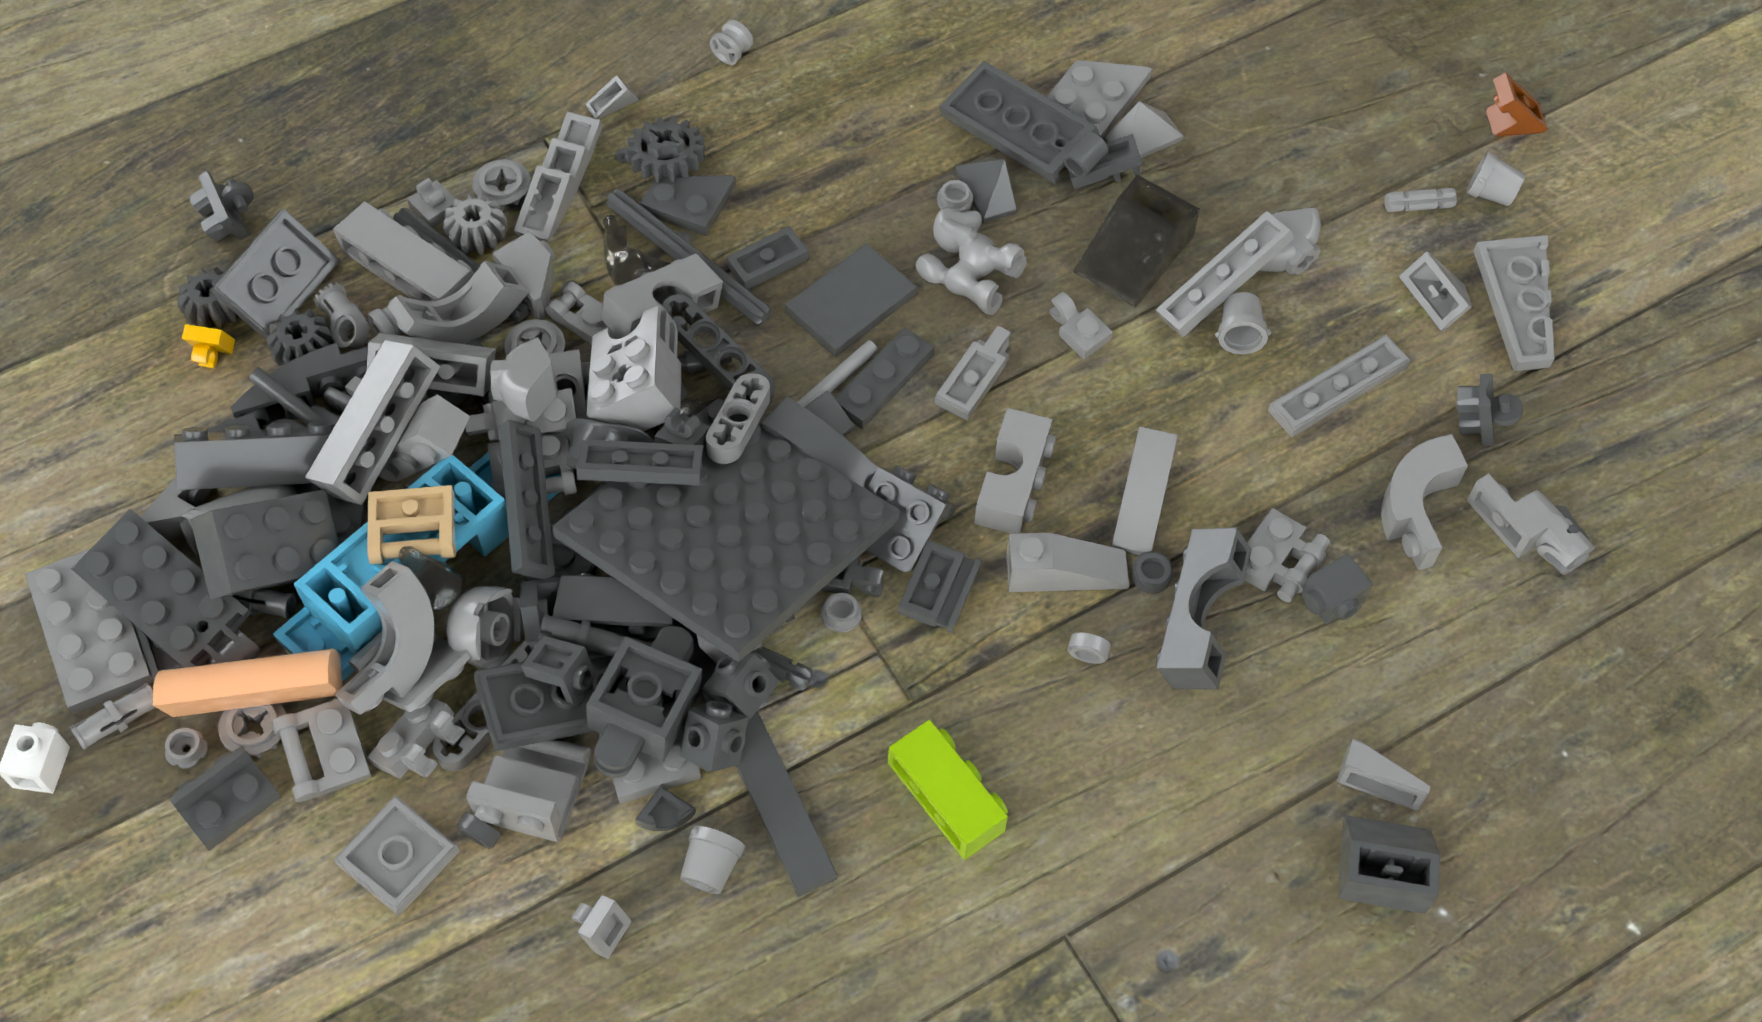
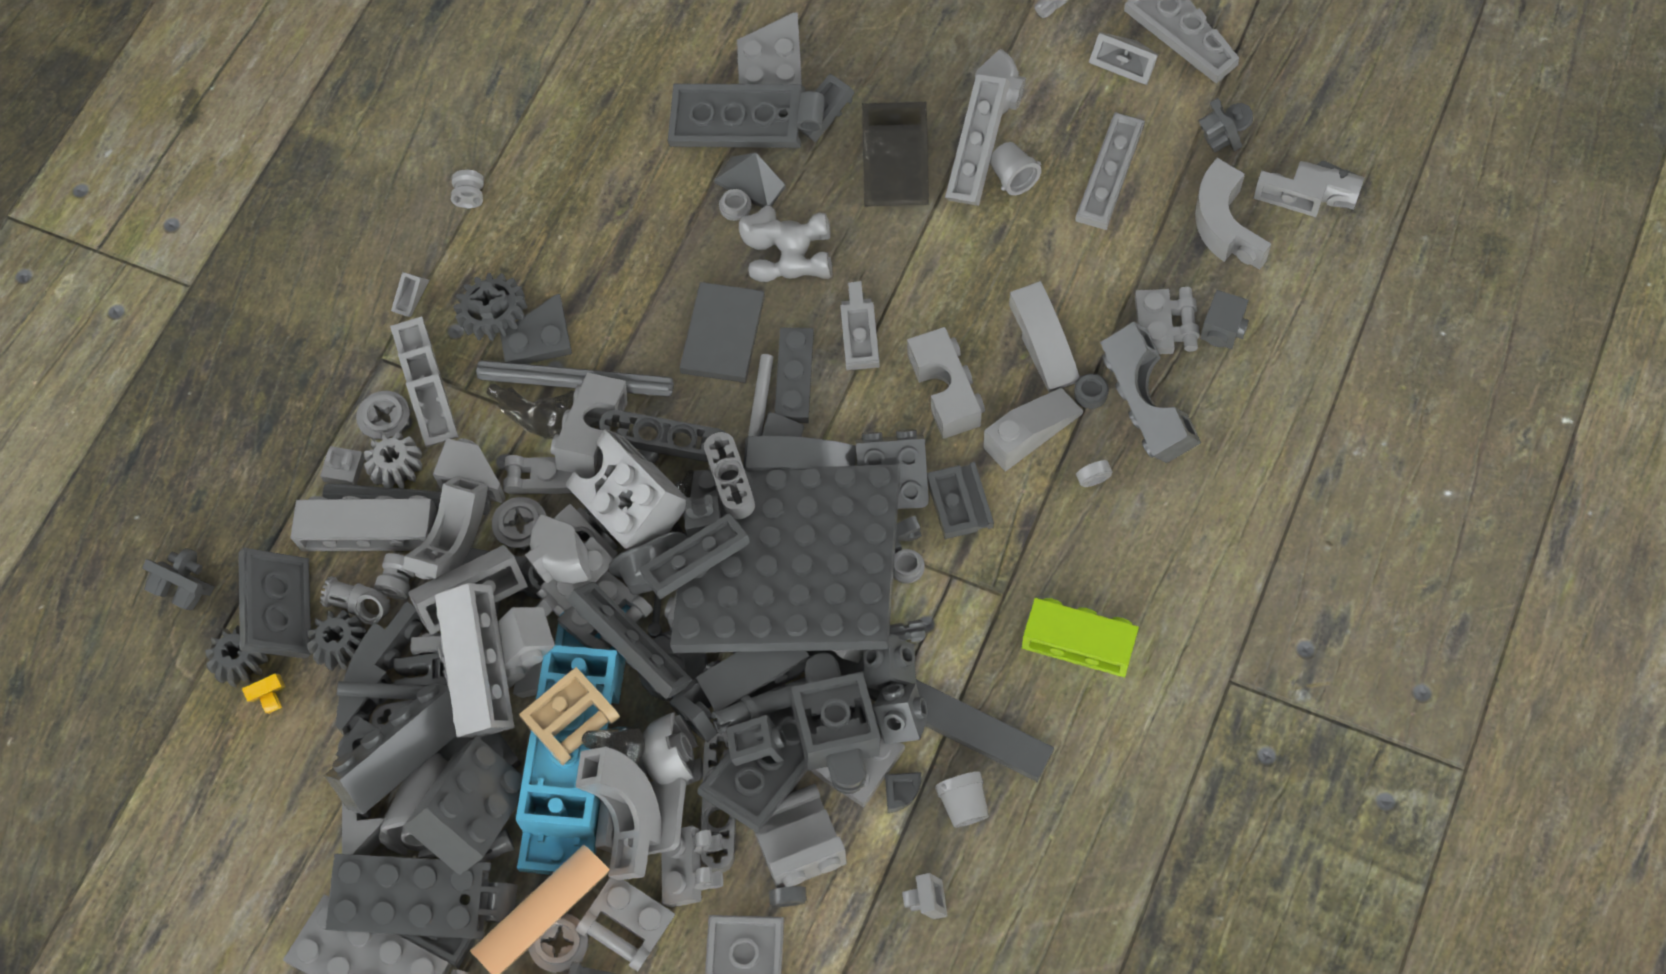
camera: 30 degrees left, 5 degrees up
(767, 258) = (637, 341): dark grey plate -> none
(1082, 330) = (905, 247): light grey plate -> none
(1150, 128) = (830, 59): light grey slope -> none
(1377, 775) = (1339, 431): light grey slope -> none
(1388, 865) = (1396, 484): dark grey slope -> none

